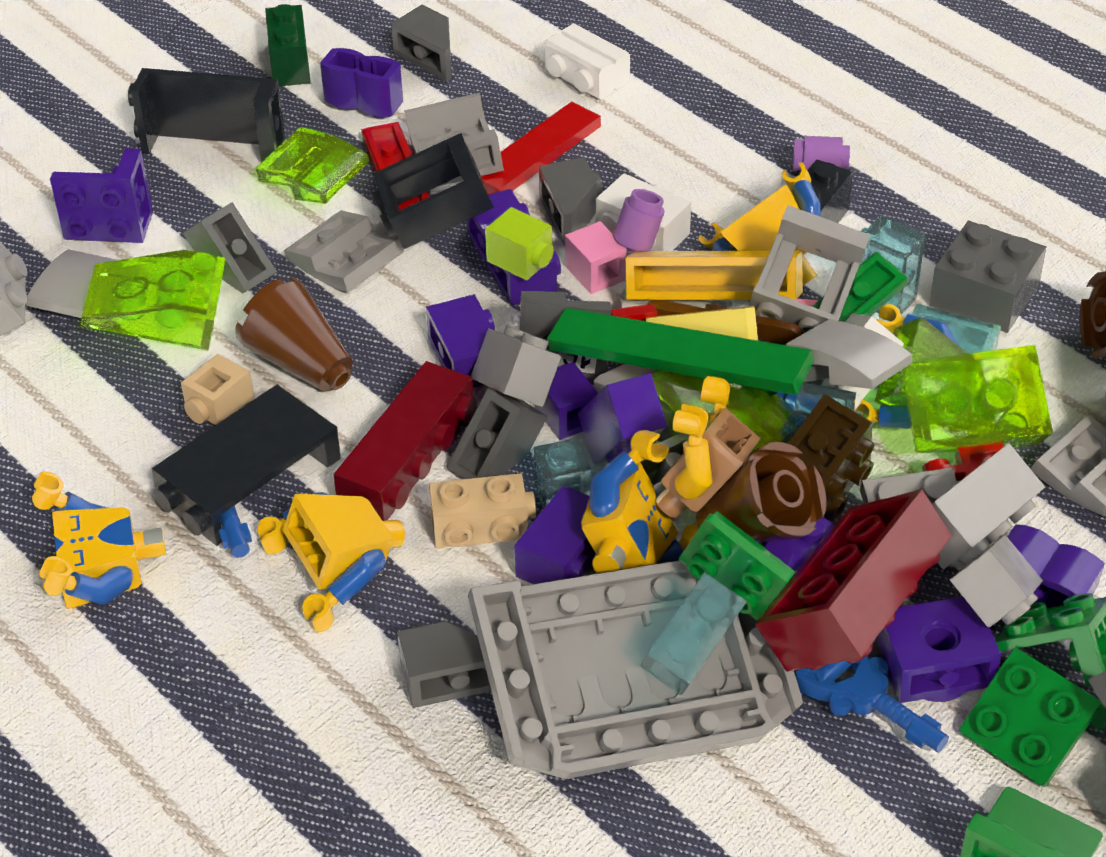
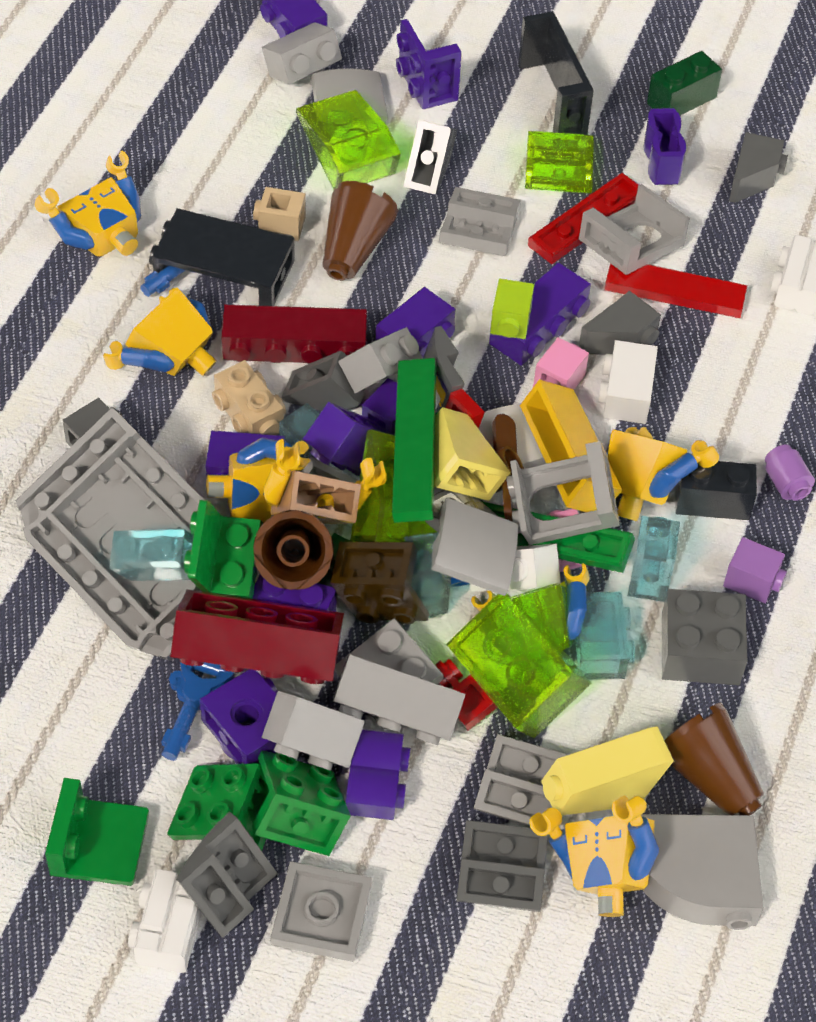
camera: 60 degrees right, 10 degrees up
(425, 172) = (575, 239): black window -> none
(639, 220) = (591, 373): medium lavender brick -> none
(927, 212) = (755, 570): none -> medium lavender brick

